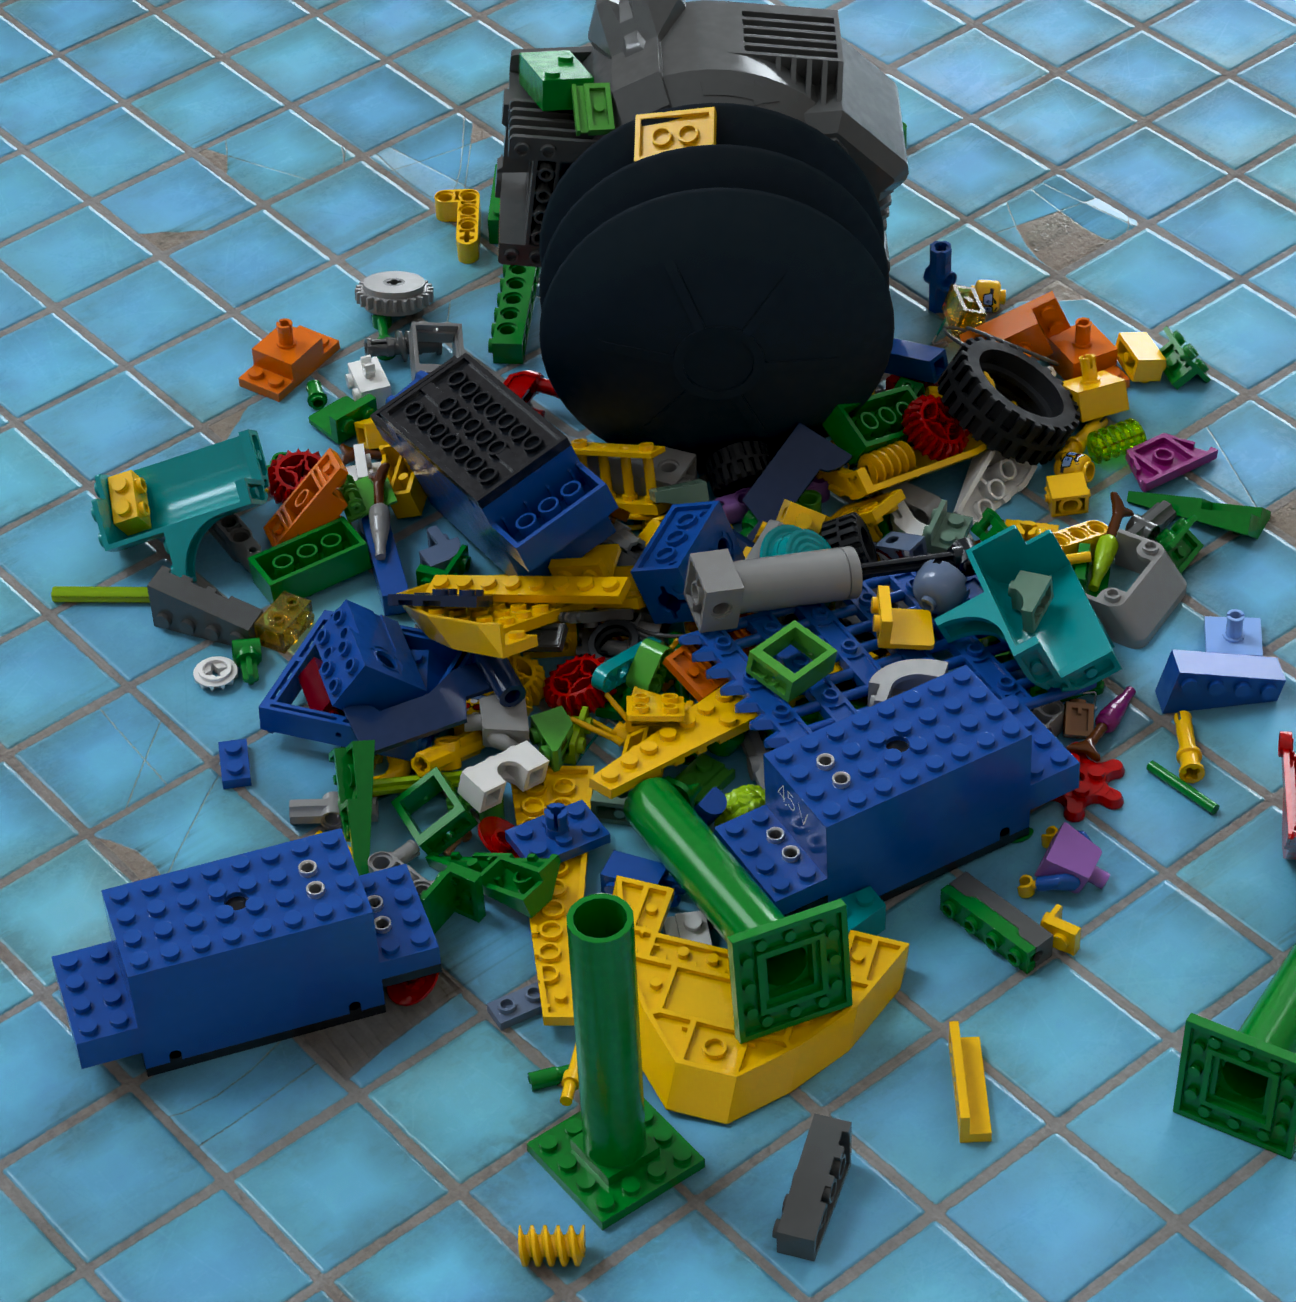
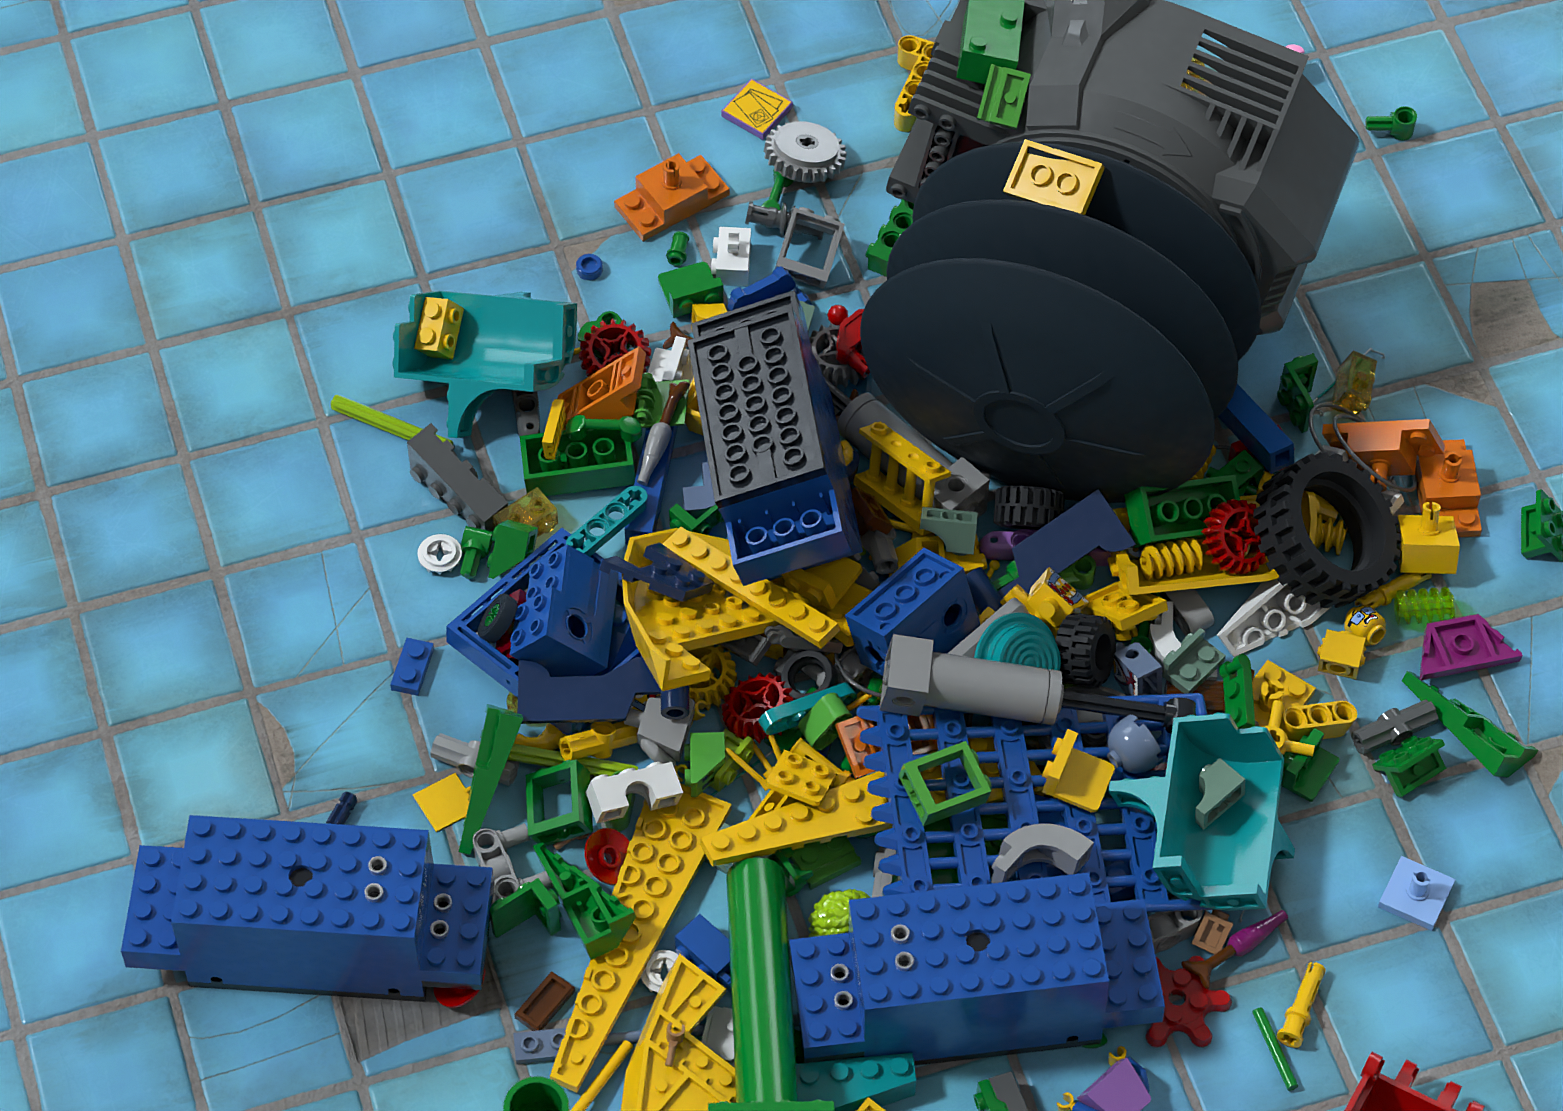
camera: 20 degrees right, 15 degrees up
(238, 426) = (589, 267): none -> blue tile
(279, 537) = (554, 429): none -> yellow tile
(285, 637) = (512, 545): none -> green slope
(300, 530) = (578, 427): none -> green bar
(305, 683) = (497, 618): none -> black bush
(331, 282) = (757, 109): none -> yellow tile
(371, 594) = (609, 525): none -> teal beam
(502, 972) = (544, 1002): none -> reddish brown tile
(560, 831) = (657, 876): blue plate -> none
(649, 939) = (674, 1040): none -> medium nougat hand
(711, 806) = (803, 904): blue brick -> none
(917, 323) = (1294, 388): none -> green bracket
(939, 274) = (1345, 335): blue piece -> none
(990, 294) = (1392, 369): yellow head -> none
(1107, 544) = (1345, 736): lime piece -> none
(1139, 613) = (1336, 830): light grey windscreen -> none
(1140, 357) = (1503, 509): yellow brick -> none
(1217, 680) = (1370, 942): blue wedge -> none

